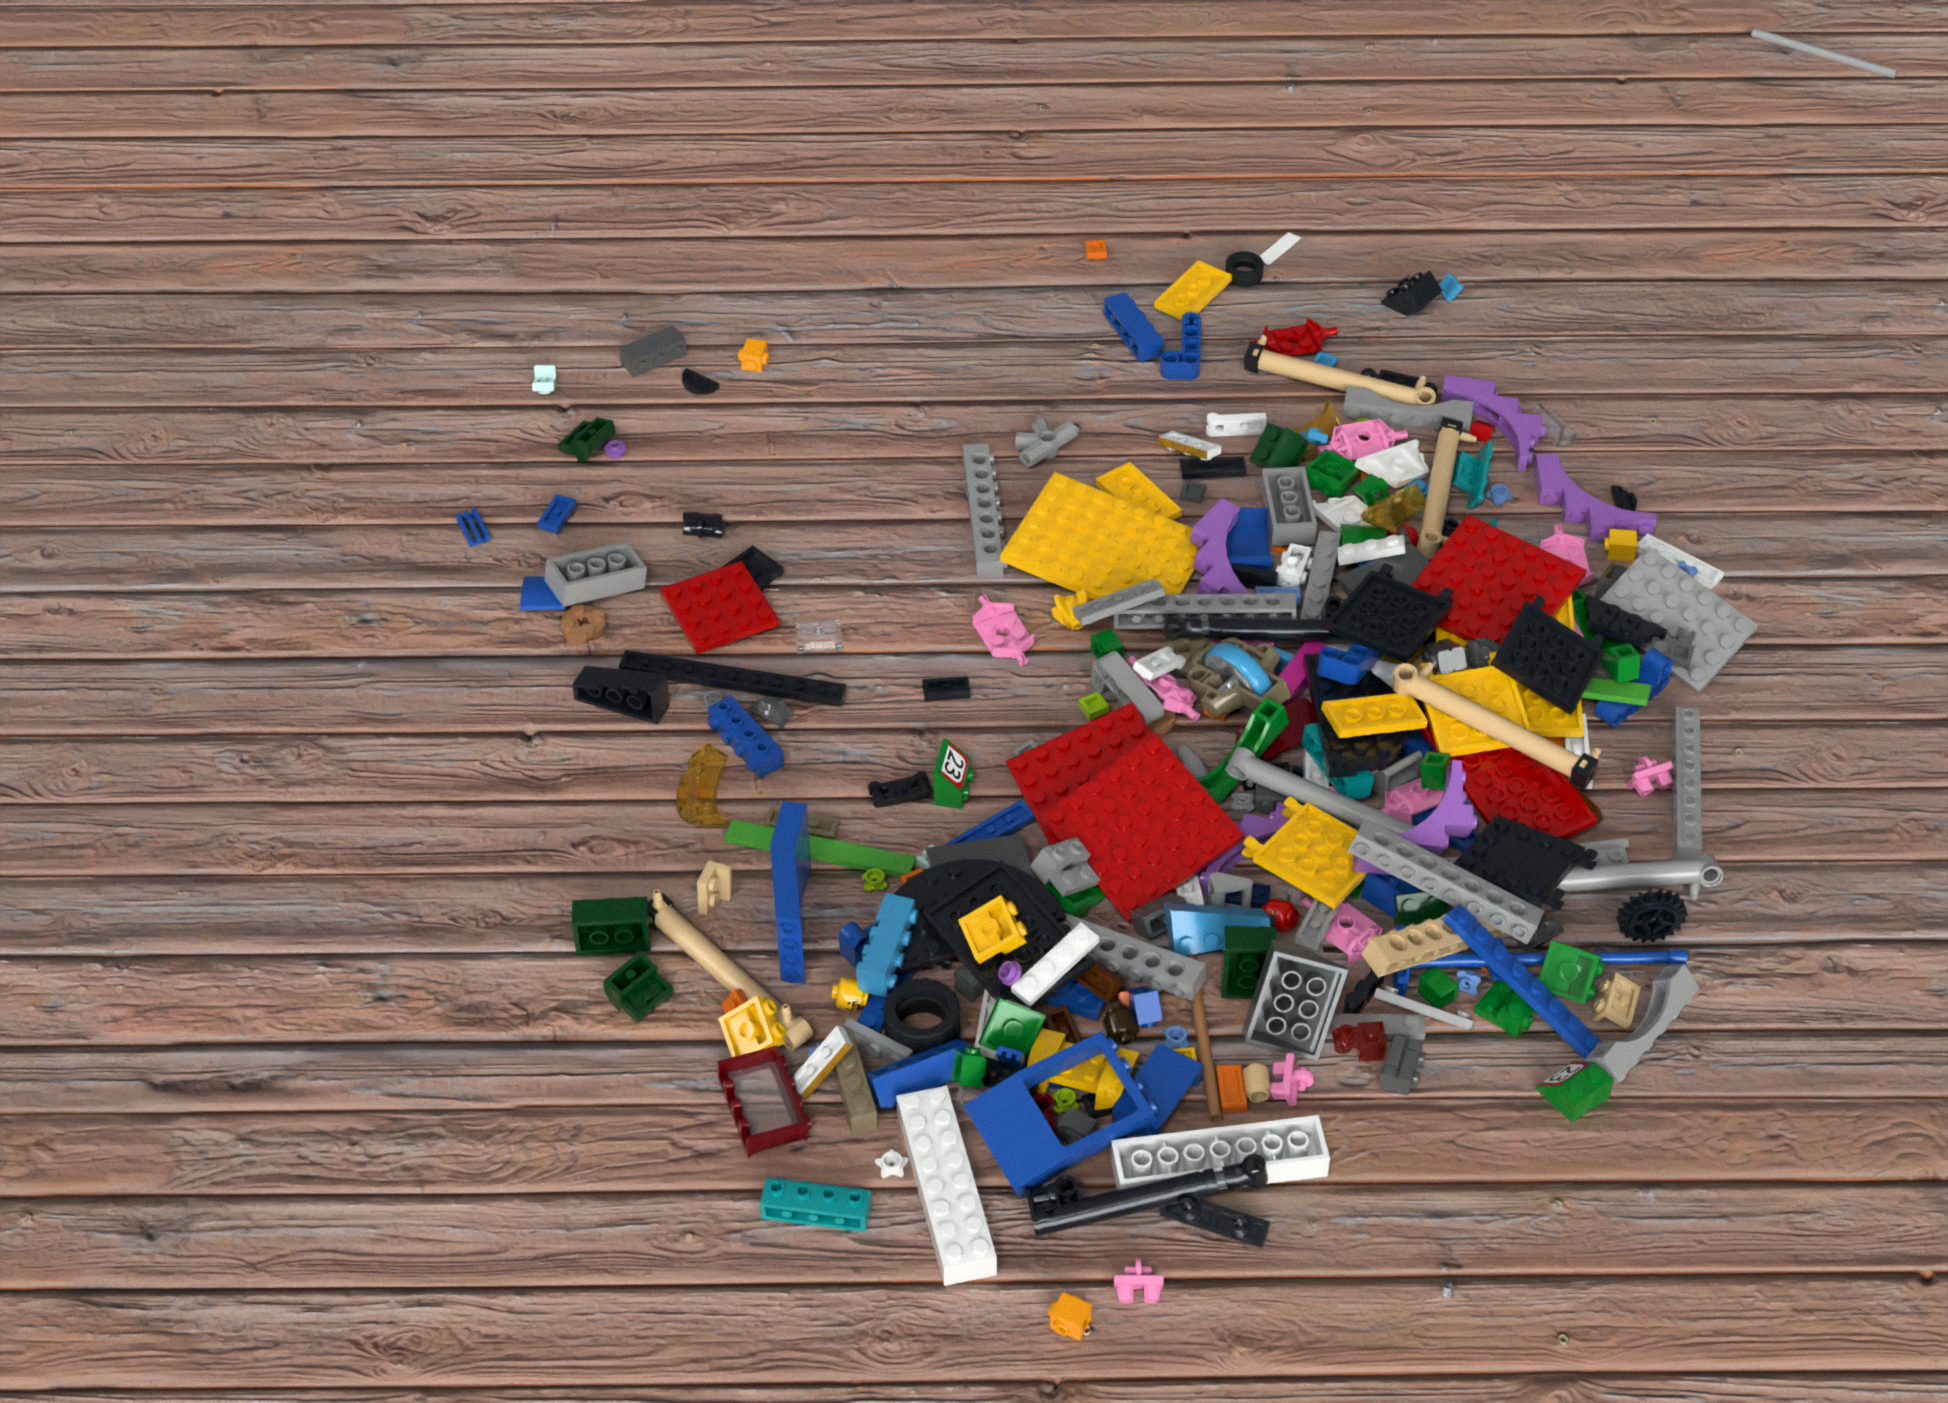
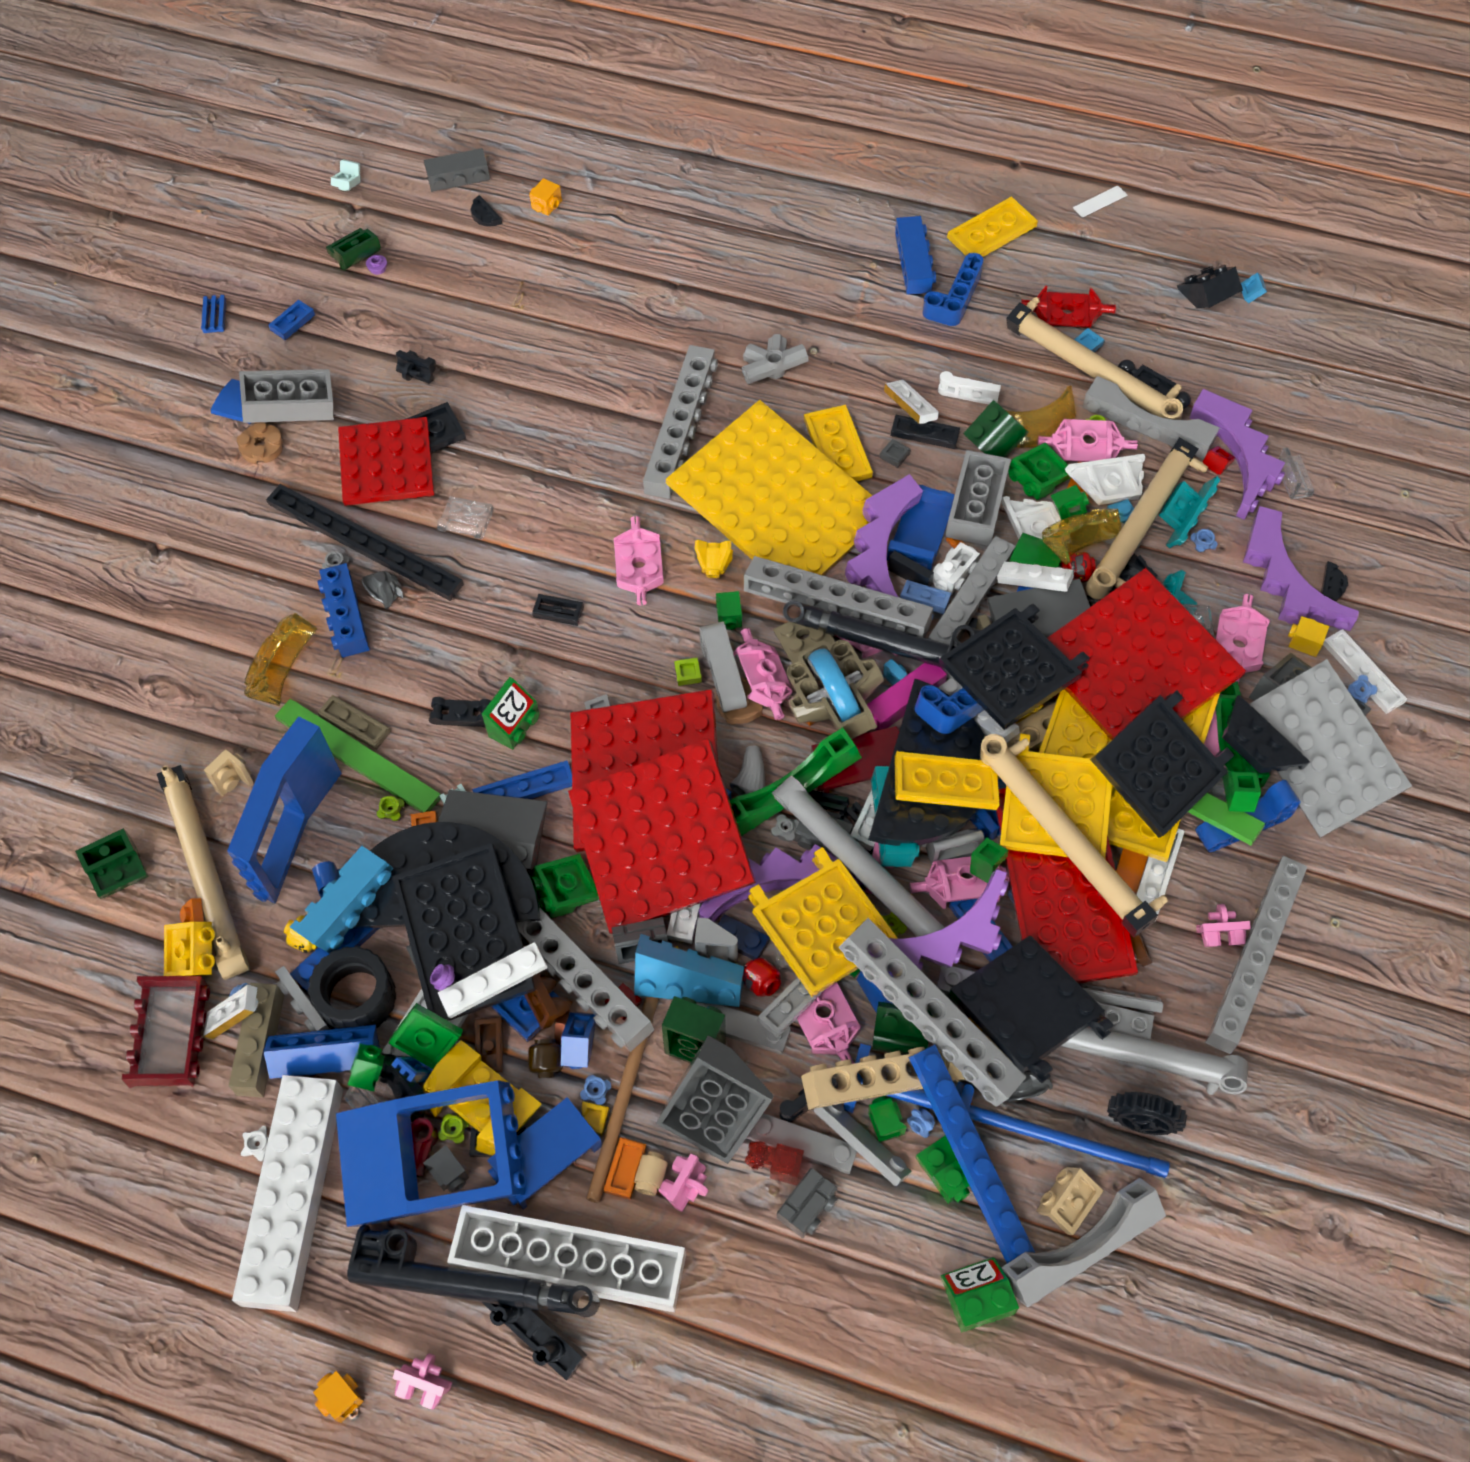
camera: 20 degrees right, 15 degrees up
(611, 925) = (117, 787): dark green brick -> none
(624, 691) = (256, 530): black wedge -> none
(816, 1204) = (159, 1170): teal brick -> none
(993, 929) = (445, 923): yellow plate -> none
(1065, 867) = (563, 849): light grey brick -> none
(1096, 249) = (917, 160): orange plate -> none
(1118, 601) = (751, 567): light grey plate -> none
(1159, 663) = (761, 649): white plate -> none
(1245, 259) = (1058, 206): black tyre -> none
(1314, 436) = (1036, 425): dark azure plate -> none
(1445, 656) = (1049, 731): brick -> none
(1478, 652) = (1093, 731): dark grey hat -> none
(1571, 972) = (1031, 1153): green plate -> none
(1681, 649) = (1314, 790): dark grey plate -> none

